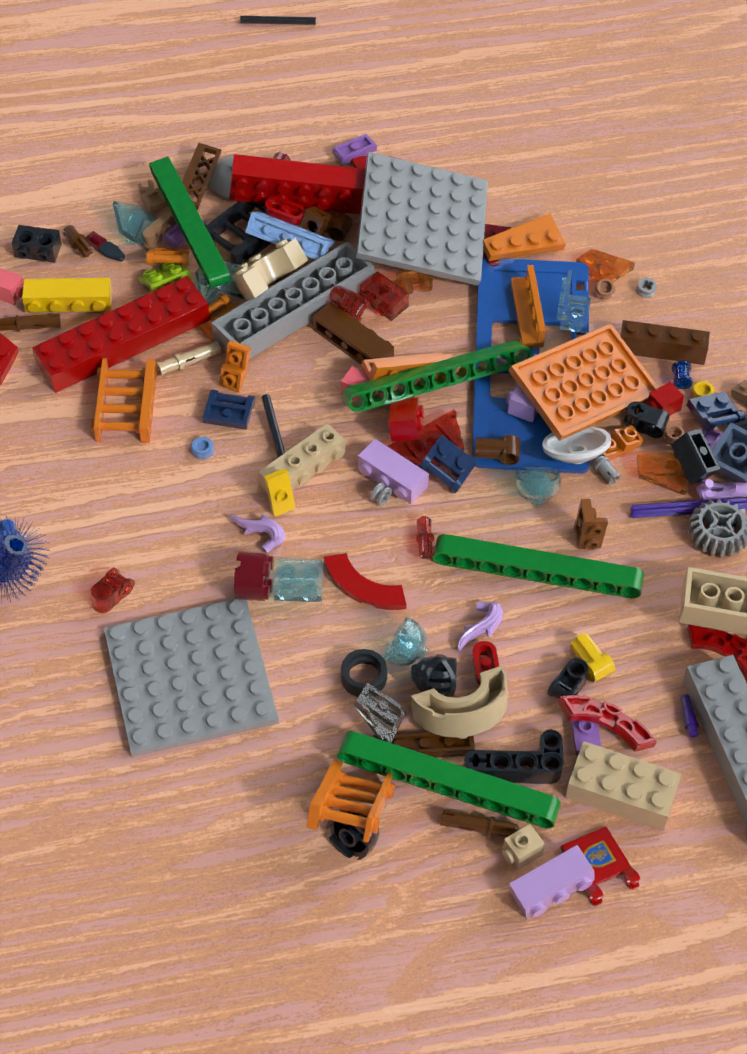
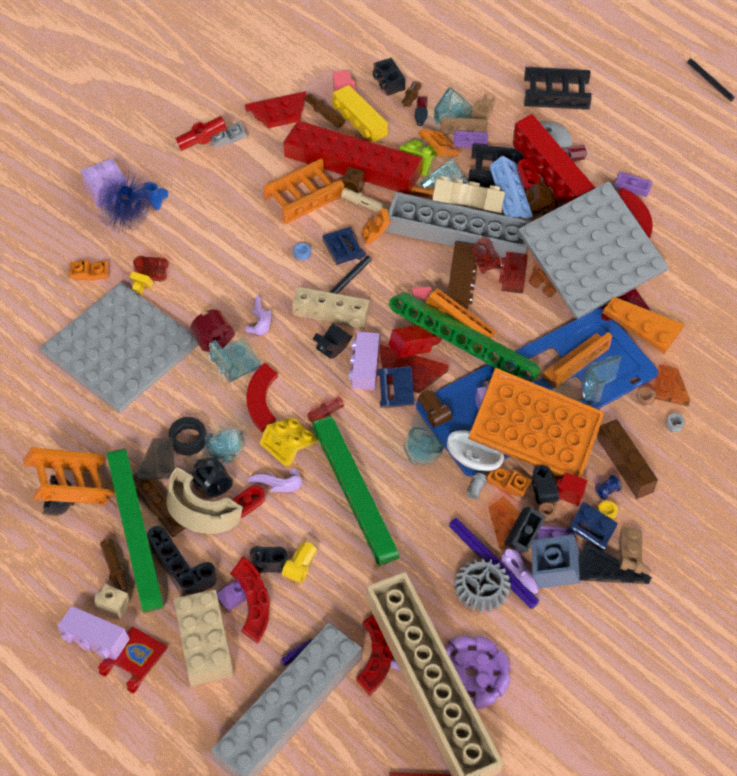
camera: 55 degrees right, 0 degrees up
(58, 650) = (89, 271): none -> orange slope
(122, 609) = (140, 282): none -> yellow tile
(154, 348) = (354, 179): none -> reddish brown brick
(188, 142) = (557, 99): none -> black fence
(190, 222) = (467, 132): green beam -> none
(193, 173) = (506, 120): reddish brown fence -> none
(279, 492) = (290, 307): yellow plate -> none
(348, 484) = (333, 341): none -> black brick
(381, 494) = (341, 365): light grey bush -> none
(438, 590) = (285, 439): none -> yellow bracket
(588, 528) = (407, 496): dark orange bracket -> none

